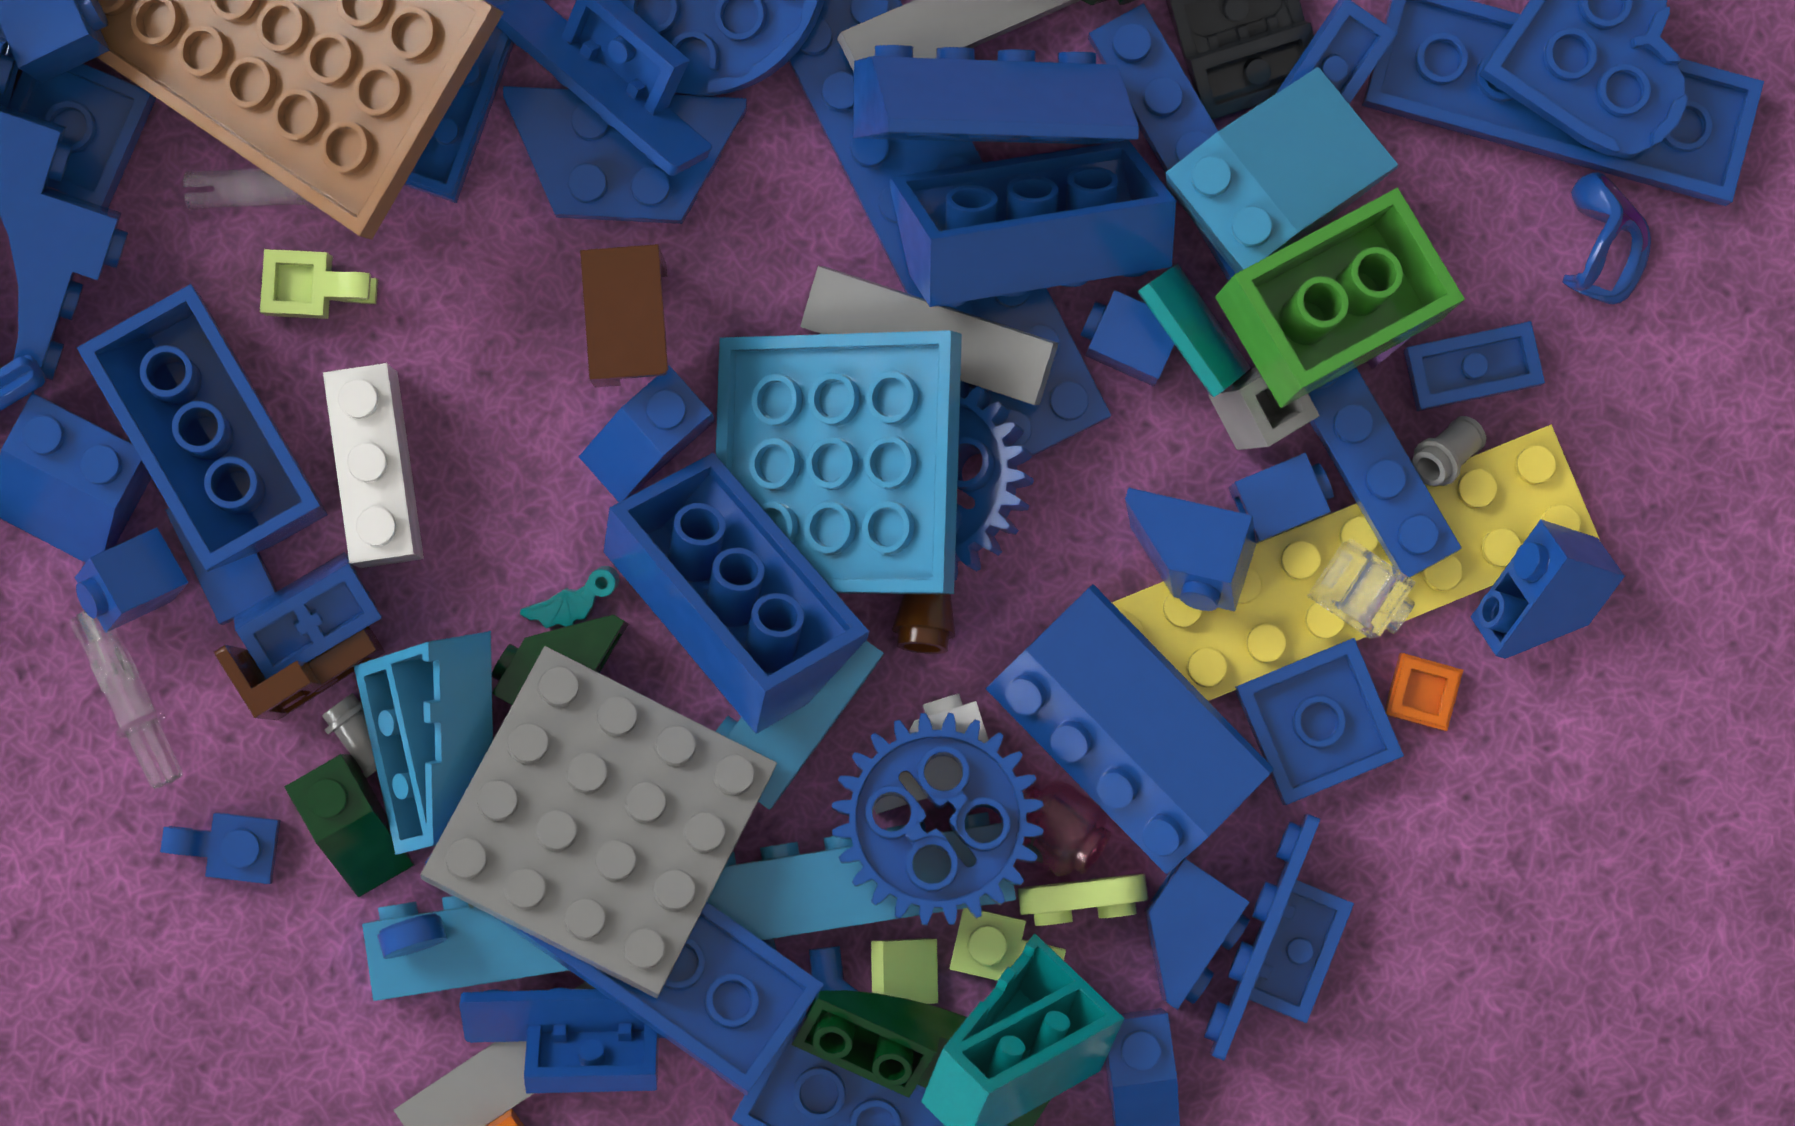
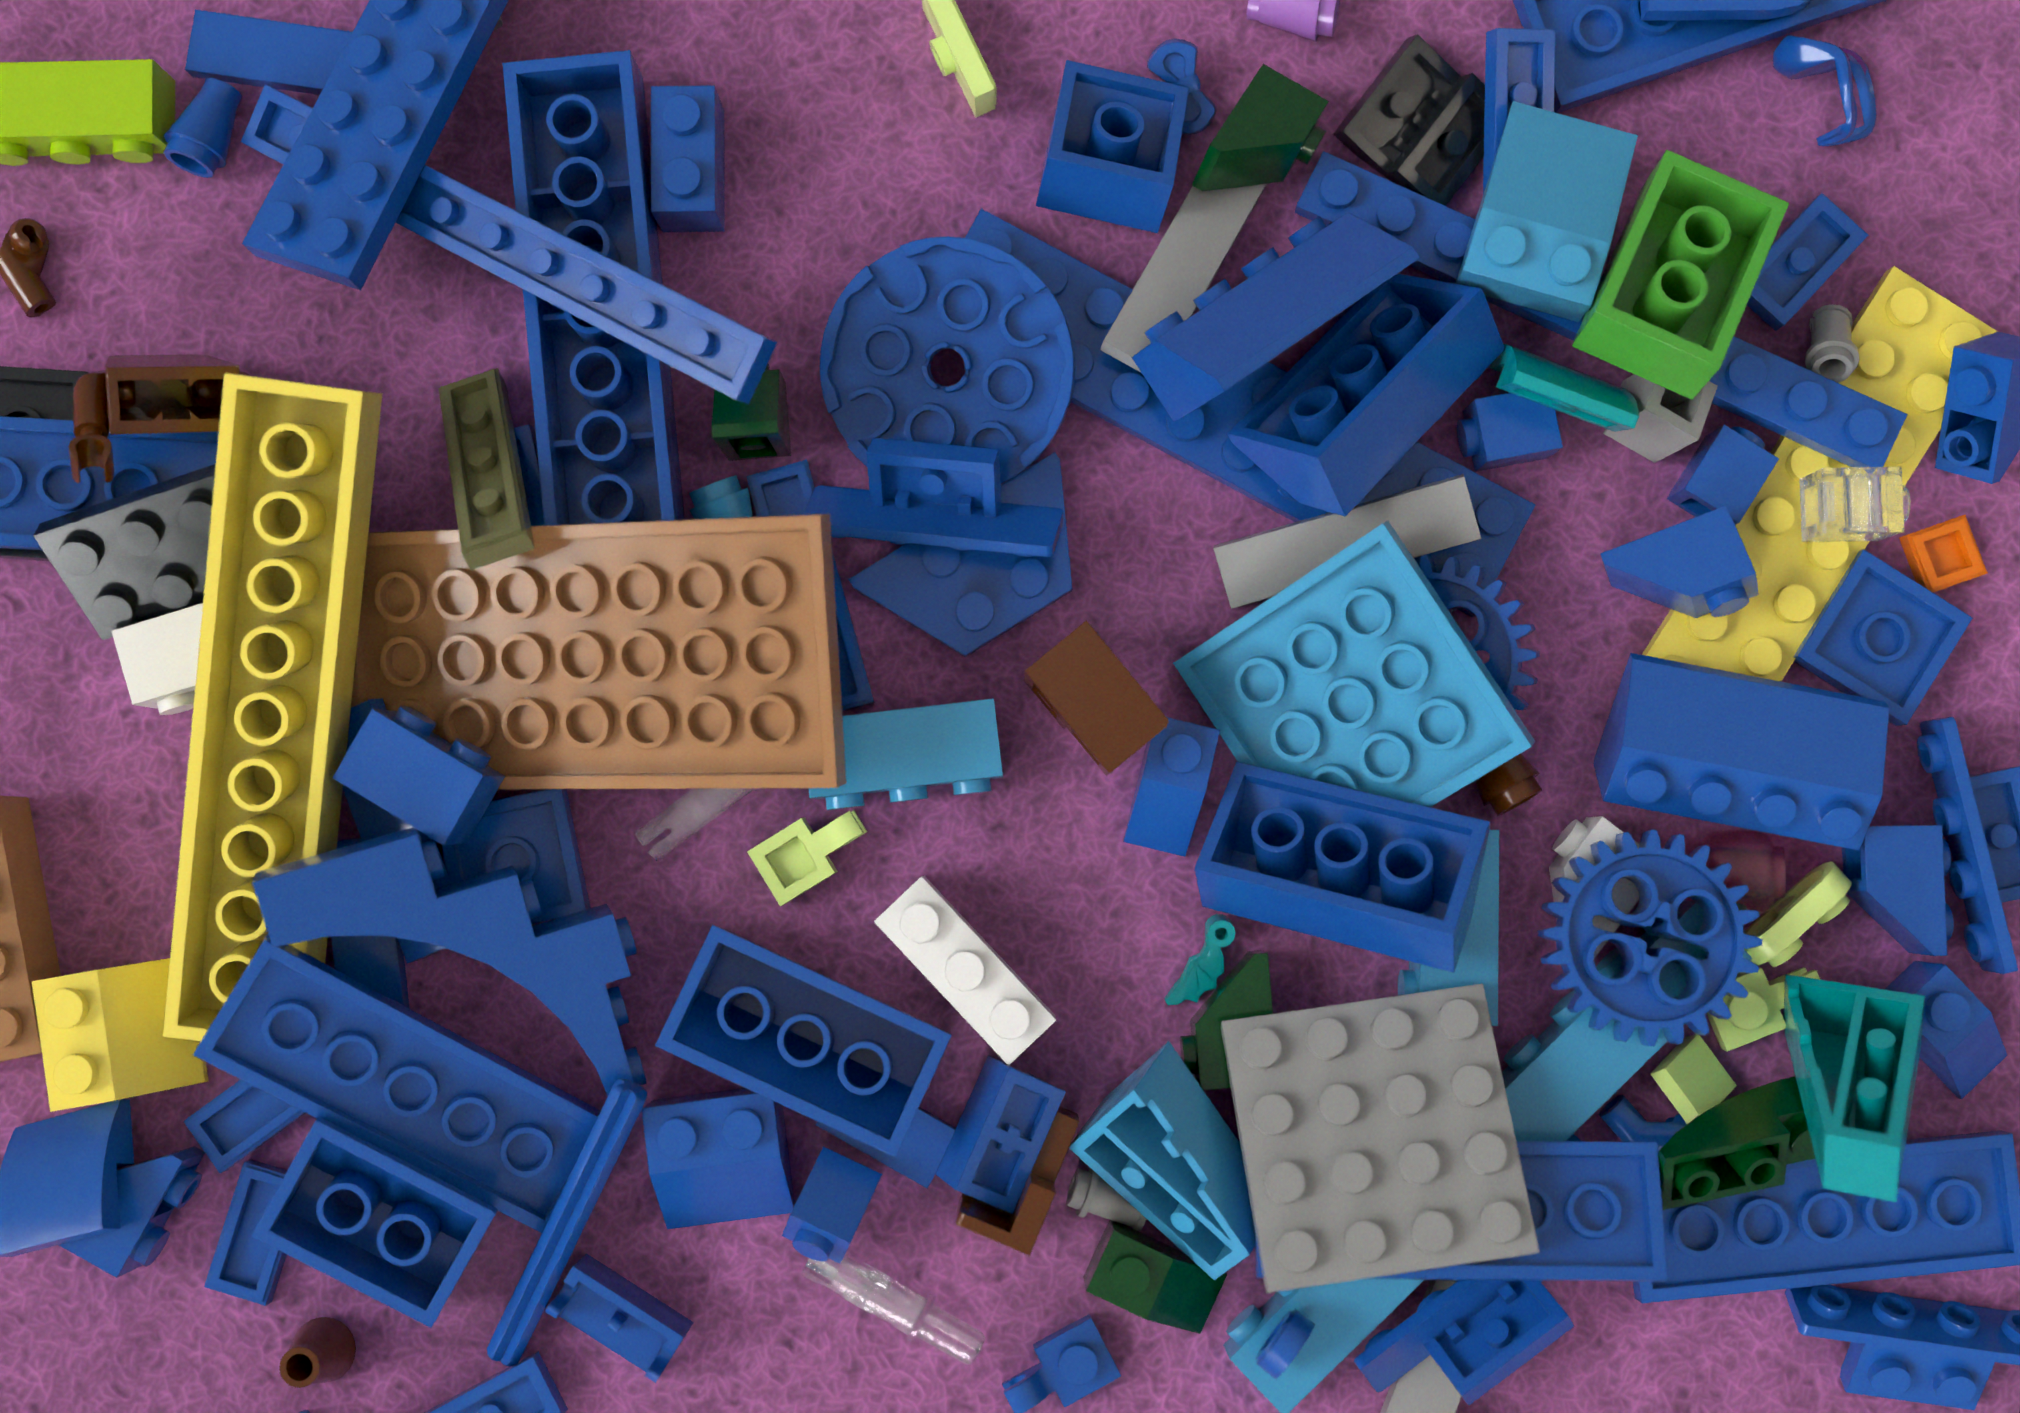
camera: 30 degrees left, 0 degrees up
(455, 262) = (917, 749): none -> dark azure brick

